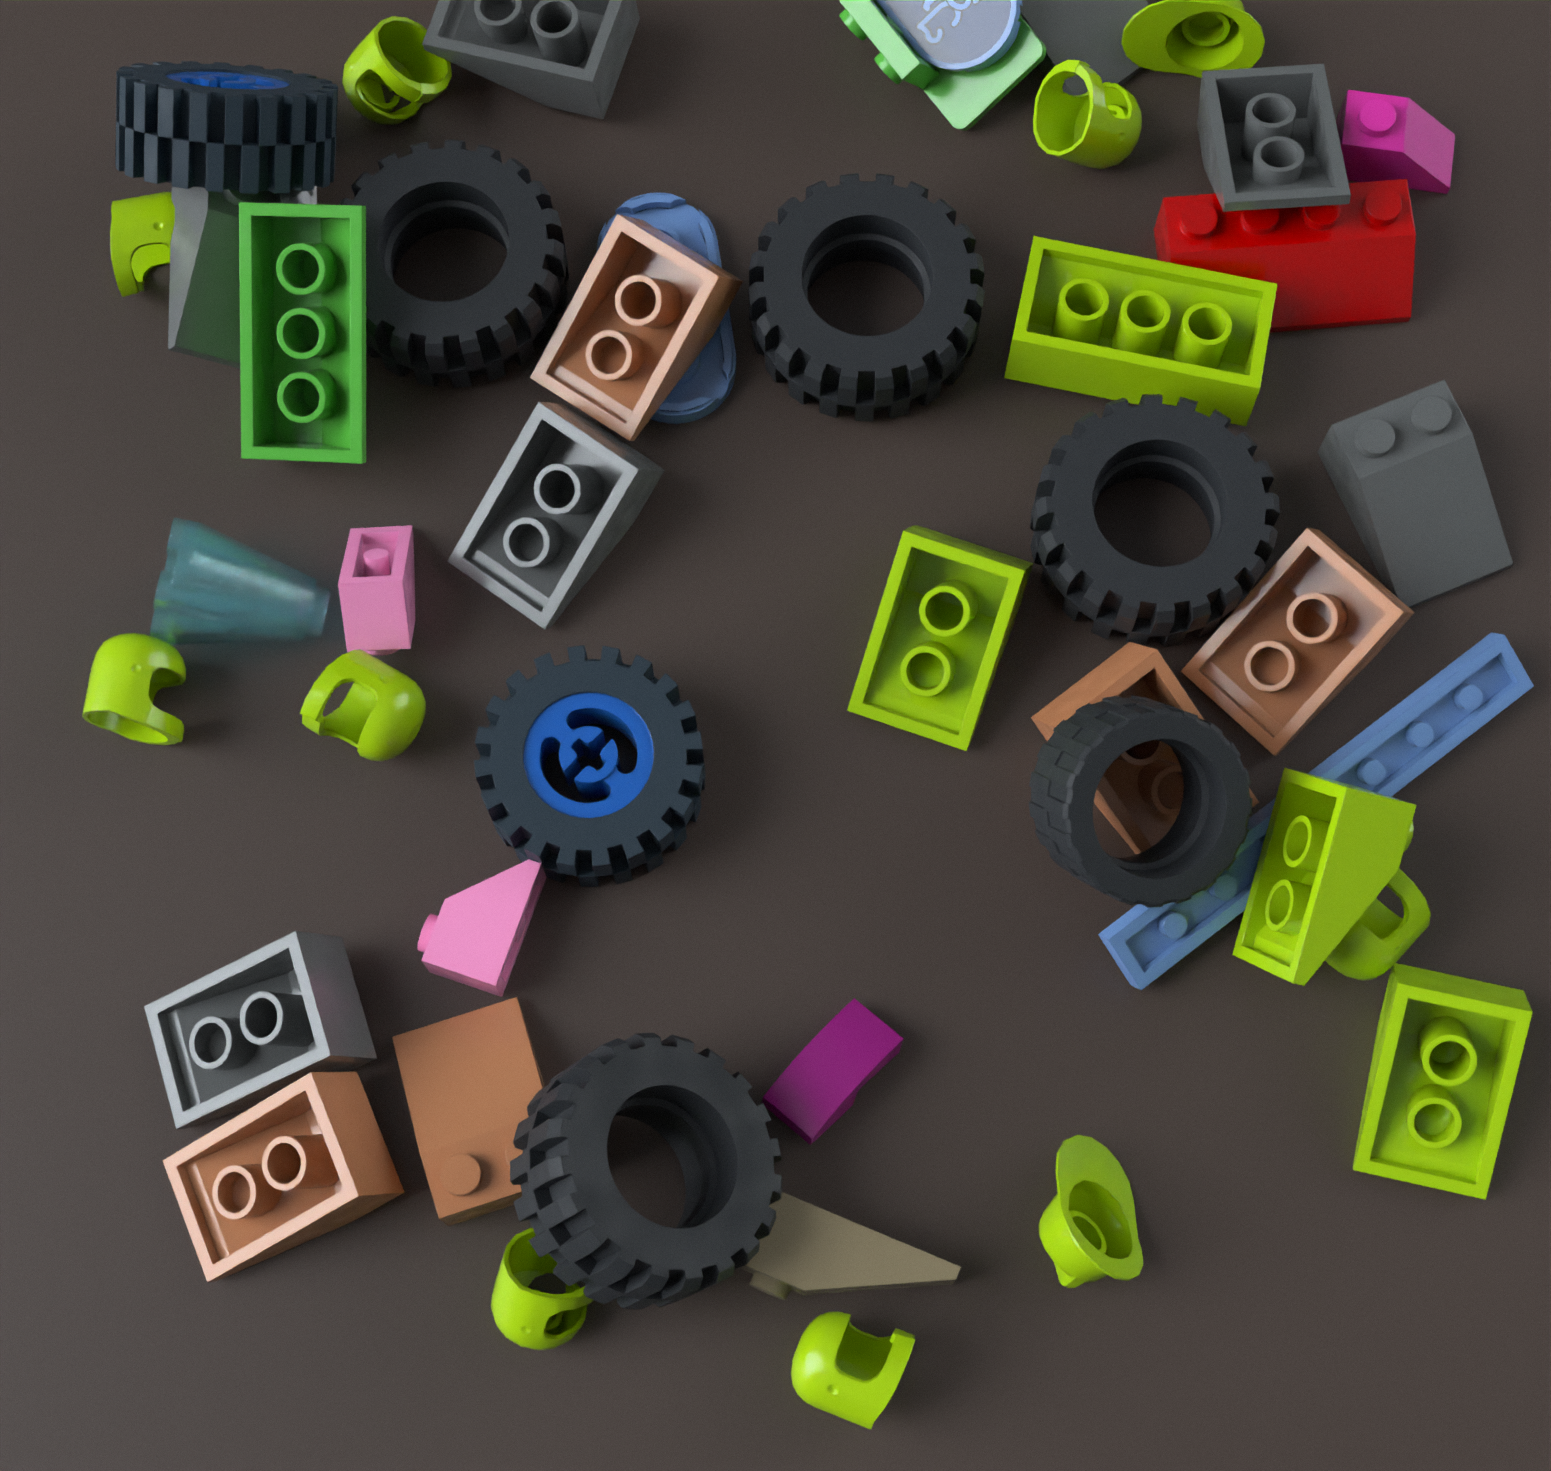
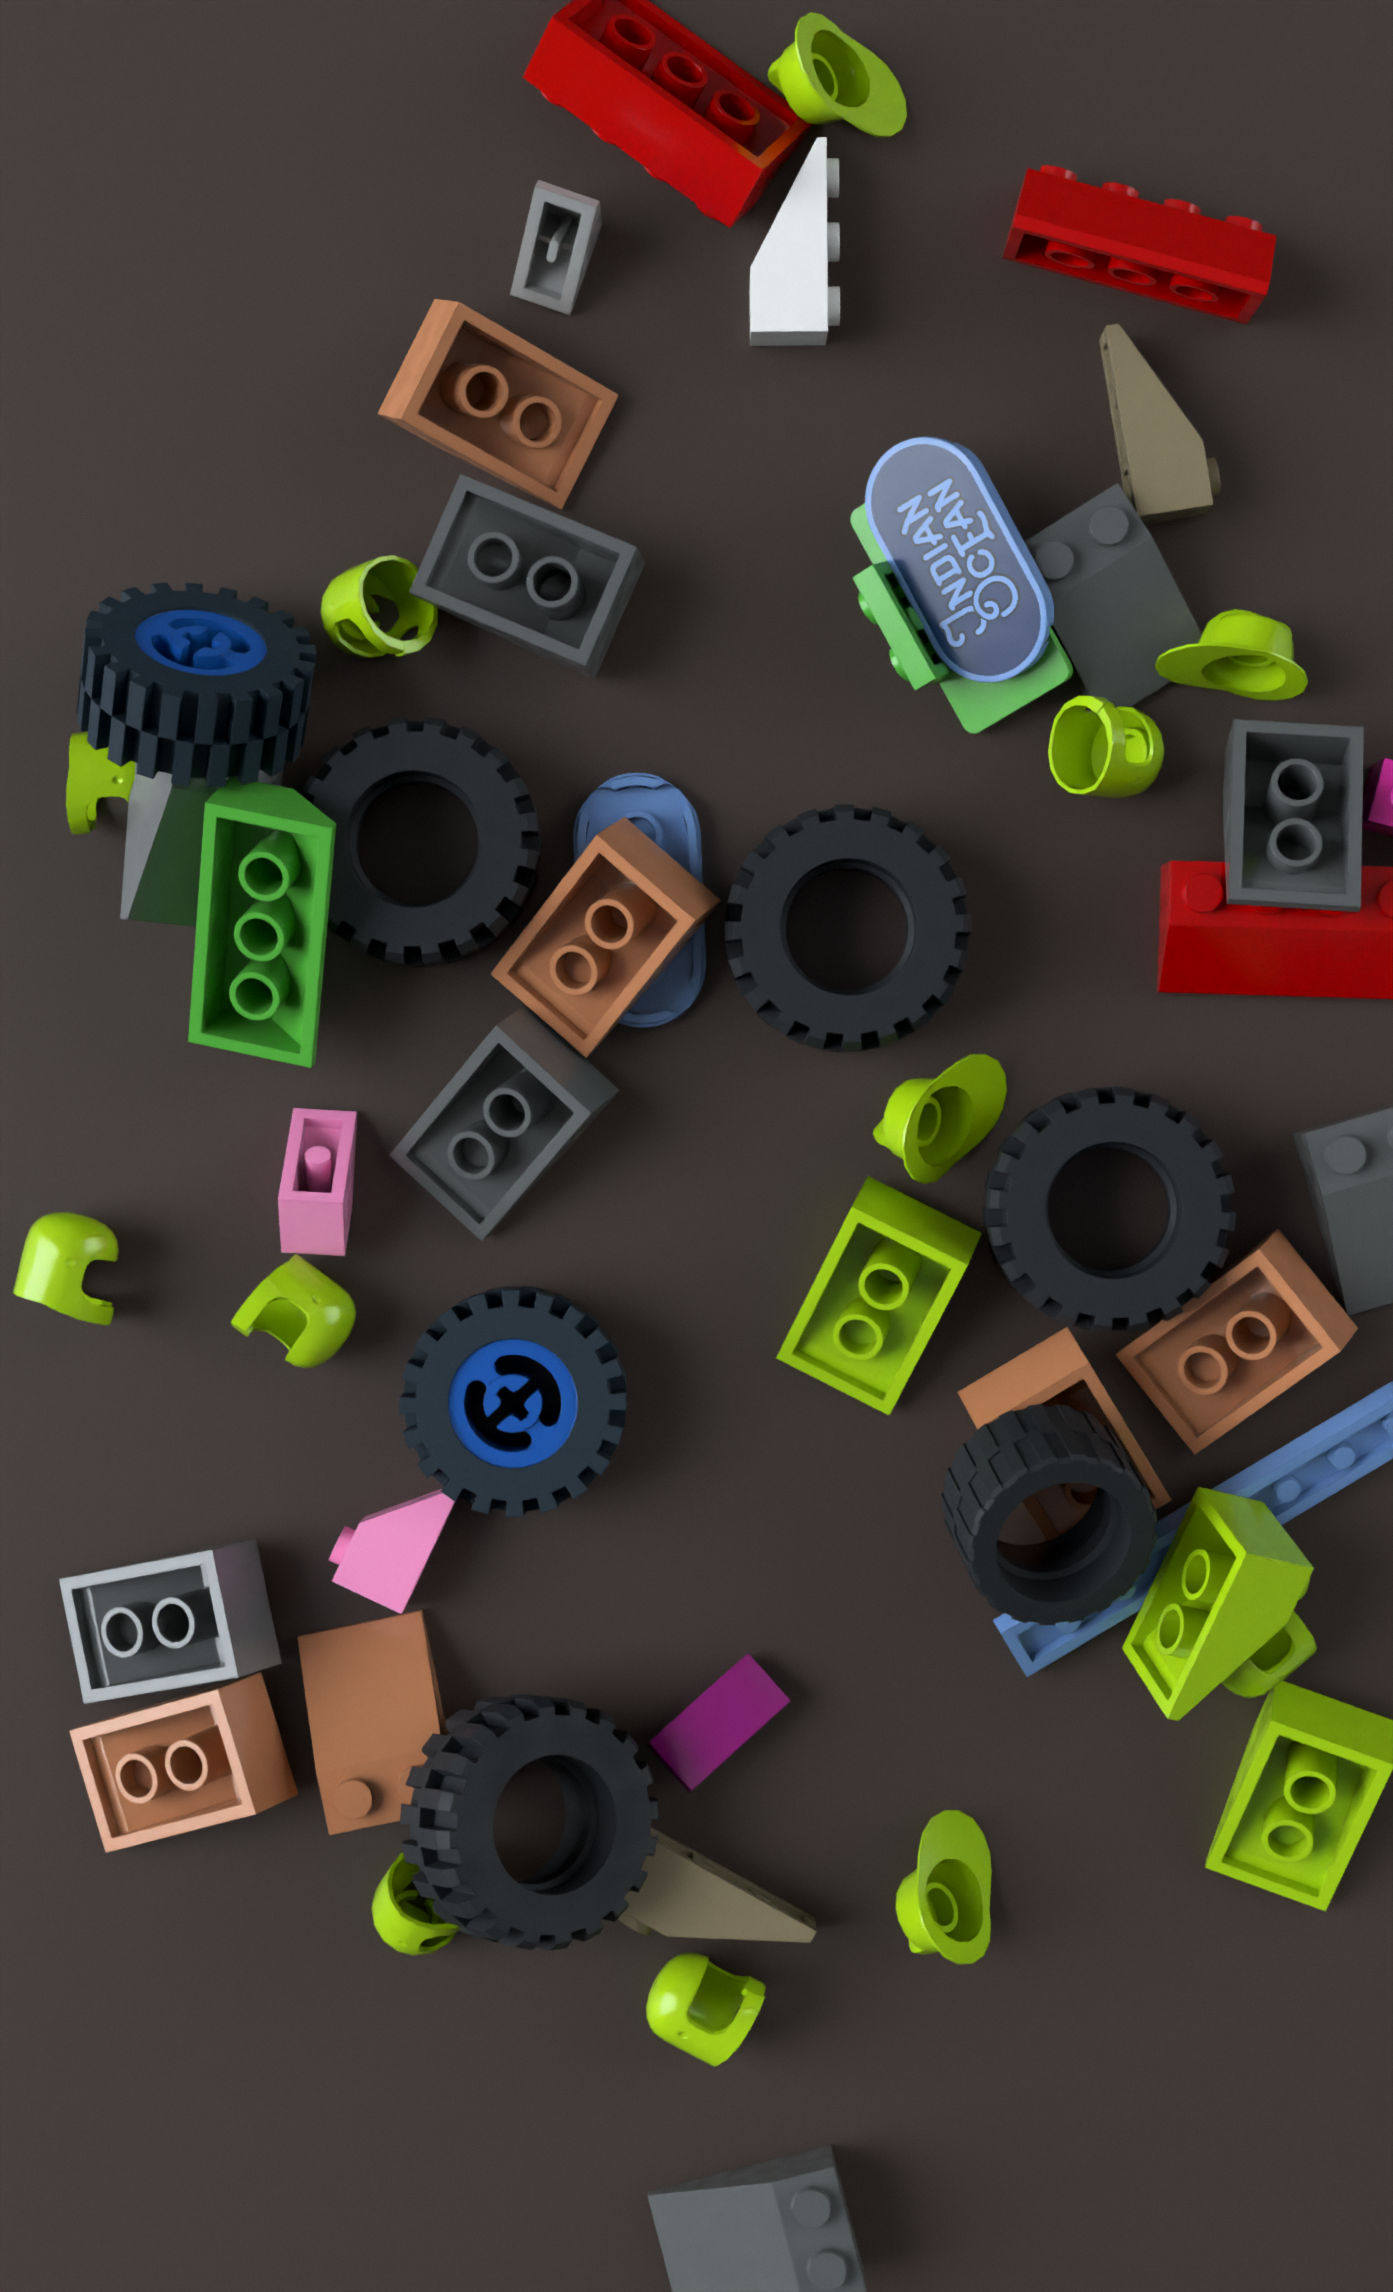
camera: 10 degrees right, 15 degrees up
(231, 592) = (170, 1178): clear light blue cone -> none
(981, 457) = (943, 1117): none -> lime piece
(1140, 327) = (1127, 997): lime slope -> none

